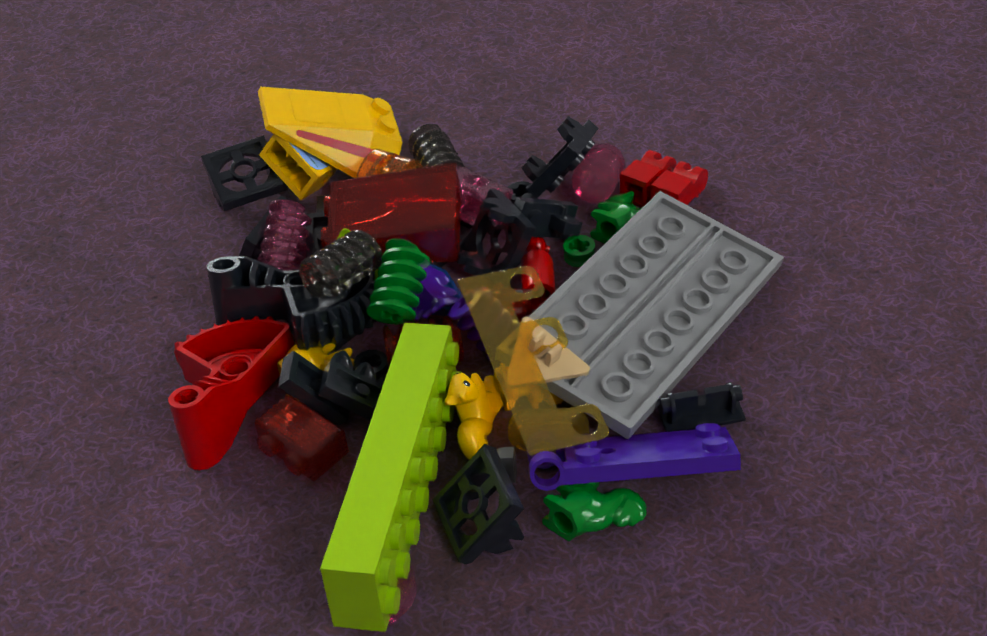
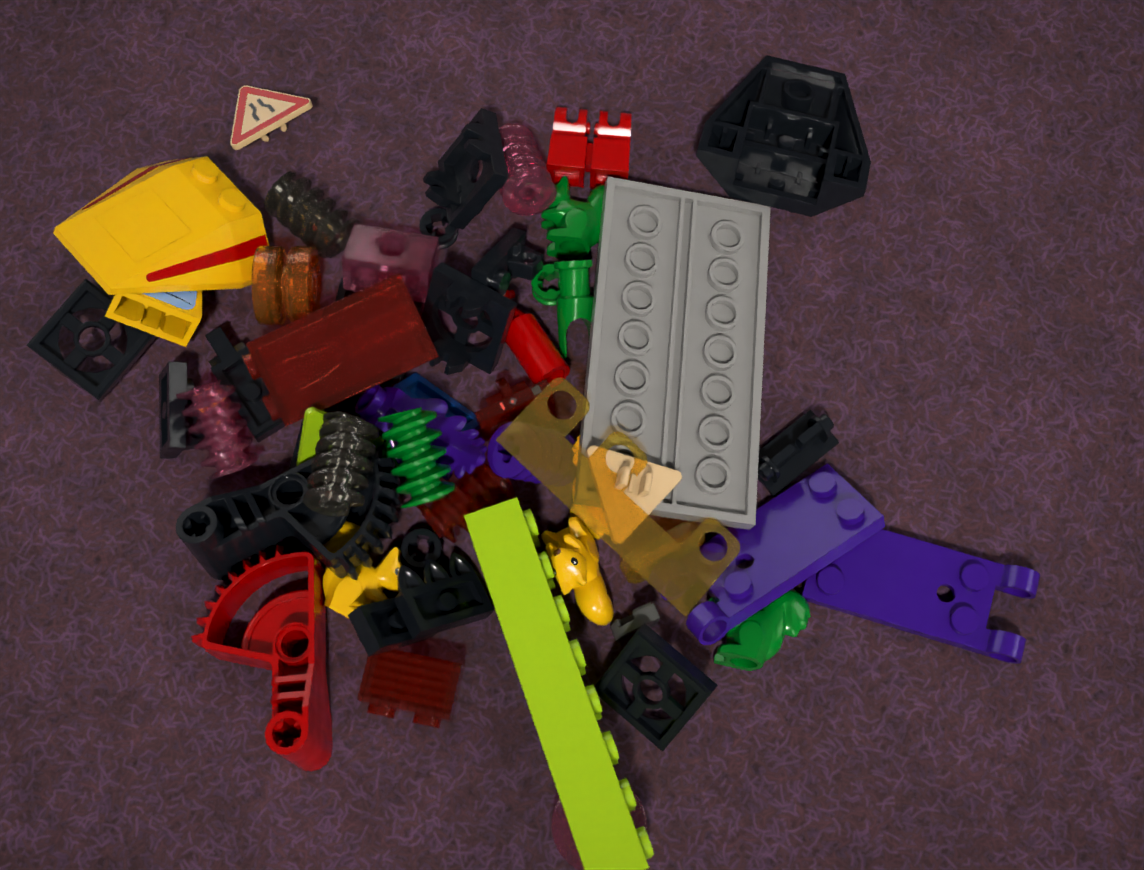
camera: 35 degrees left, 30 degrees up
(444, 100) = (263, 111): none -> piece
(594, 237) = (574, 297): none -> green piece
(736, 525) = (897, 584): none -> dark purple hinge
(815, 217) = (788, 140): none -> black wedge

